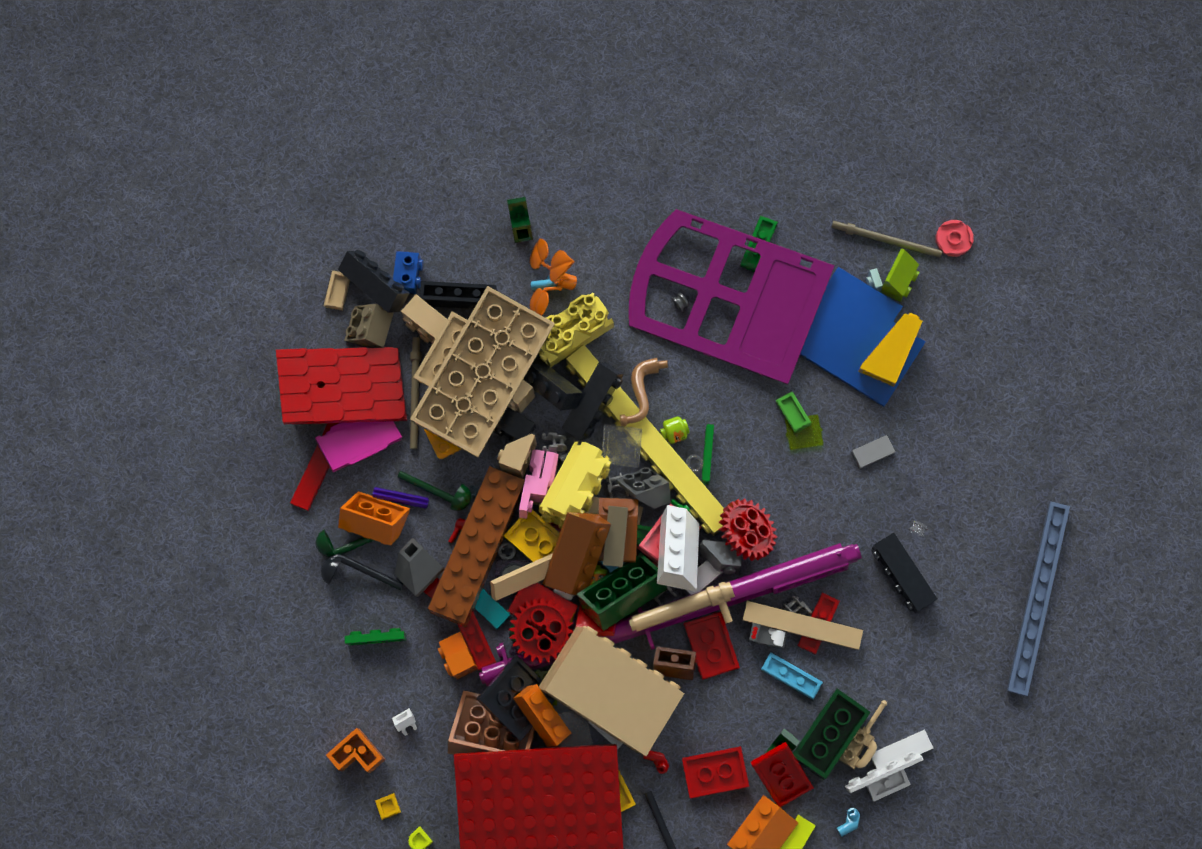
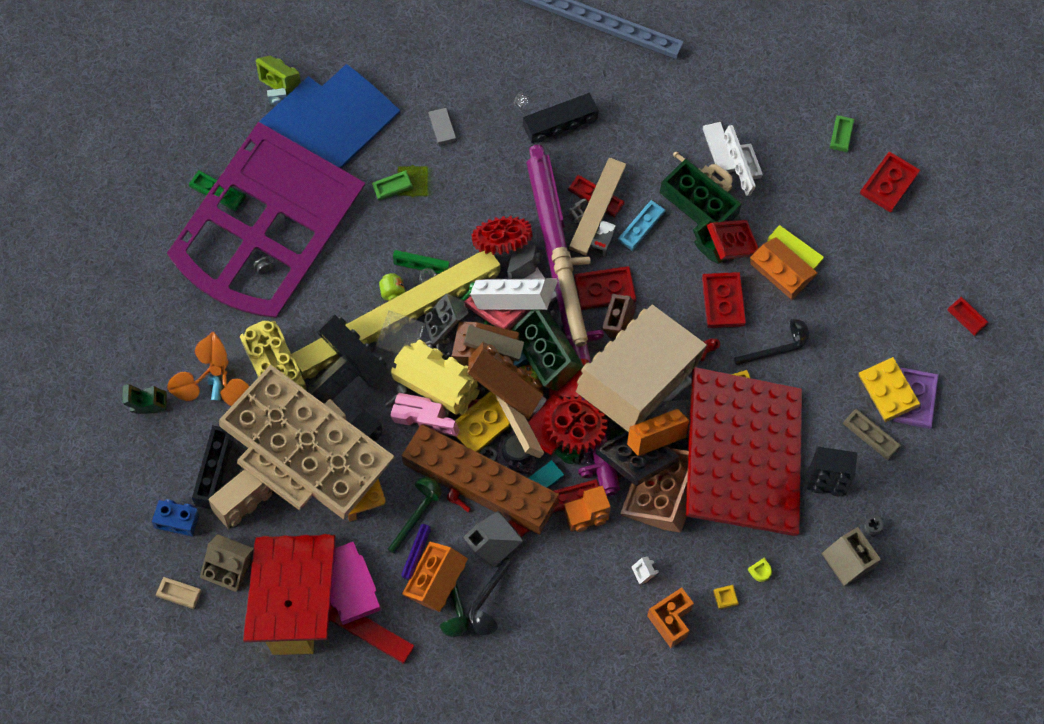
camera: 90 degrees left, 10 degrees down
(373, 281) = (180, 547): black brick -> none
(375, 636) = (557, 589): green plate -> none
(415, 357) = (269, 521): dark tan bar -> none
(517, 455) = (396, 428): tan slope -> none
(554, 438) = (378, 399): light grey piece -> none
(637, 378) = (323, 305): medium nougat animal -> none
(851, 229) = (220, 109): dark tan bar -> none
(852, 822) = (778, 196): medium azure arm -> none
(891, 353) = (352, 88): yellow slope -> none
(958, 242) = (248, 28): coral tile -> none

